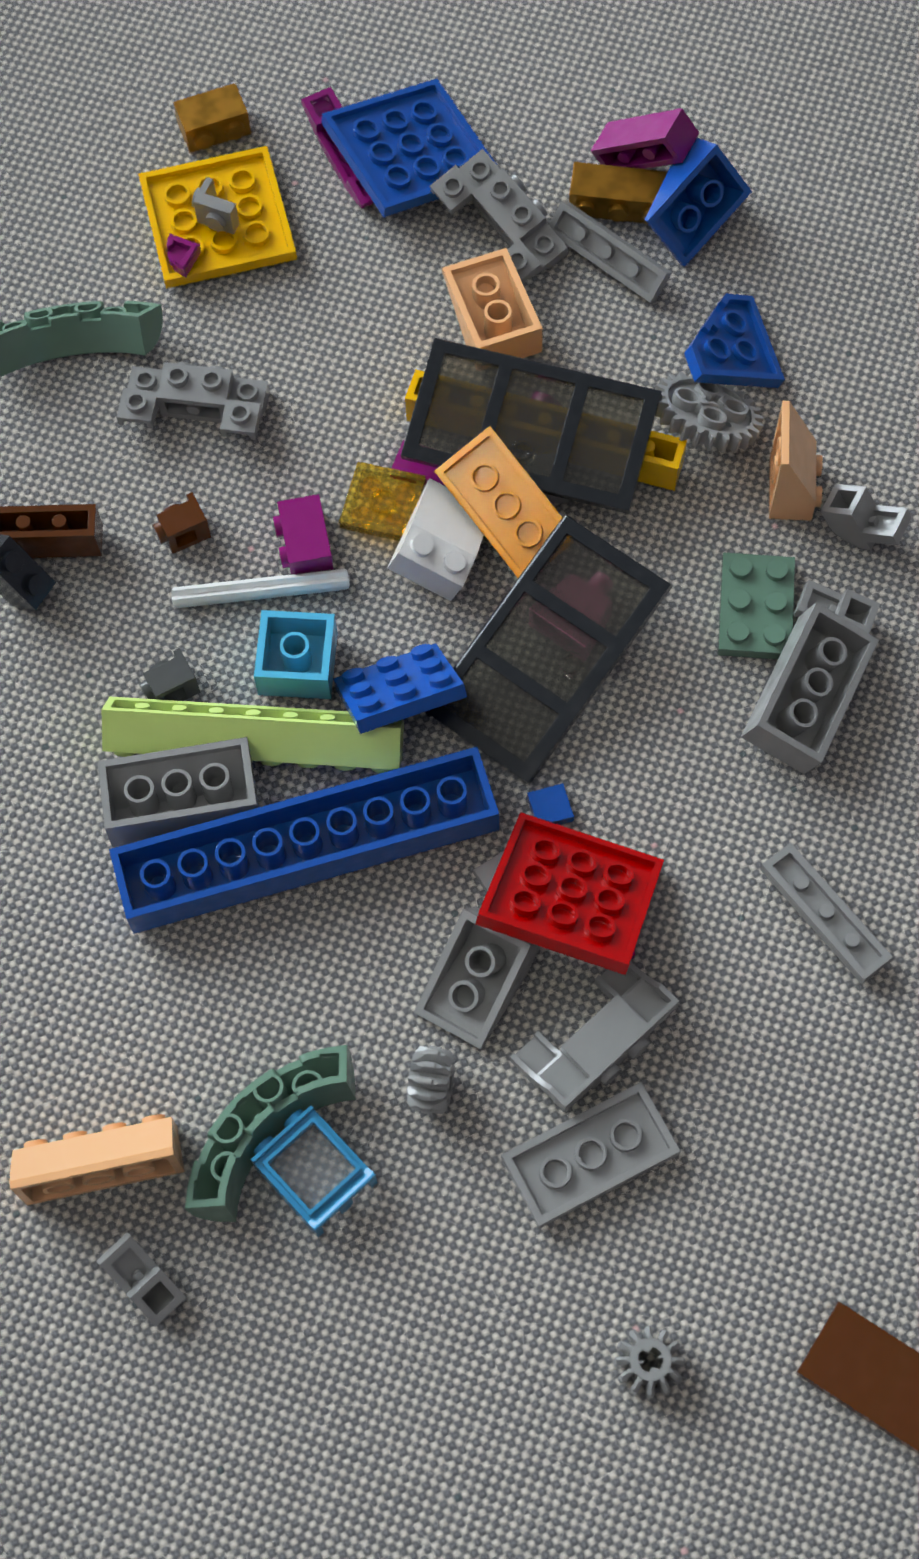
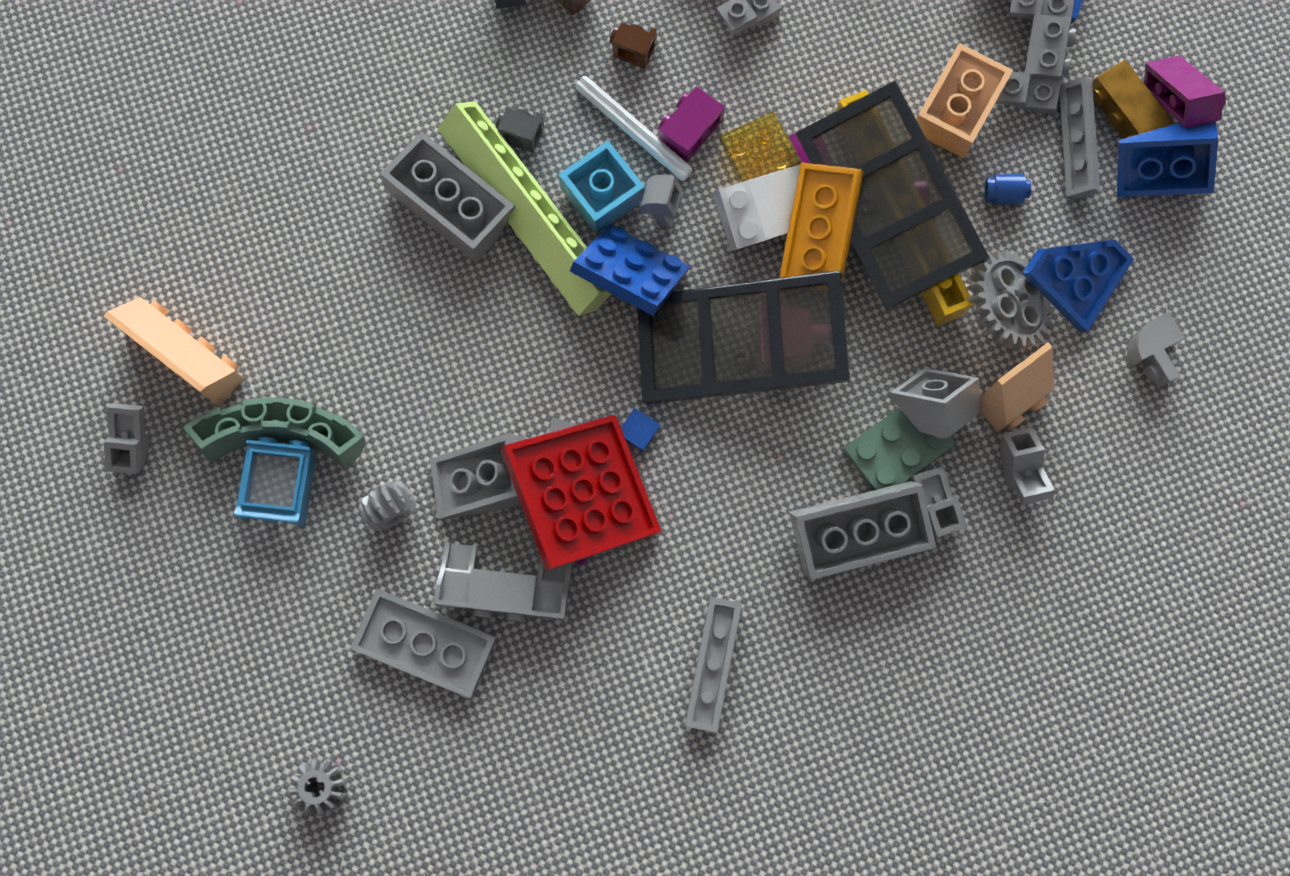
camera: 45 degrees right, 10 degrees up
(304, 840) = (482, 299): blue brick -> none
(357, 611) = (661, 199): none -> light grey brick
(602, 340) = (1007, 189): none -> blue brick
(747, 537) = (939, 401): none -> light grey slope
(840, 345) = (1150, 348): none -> light grey brick

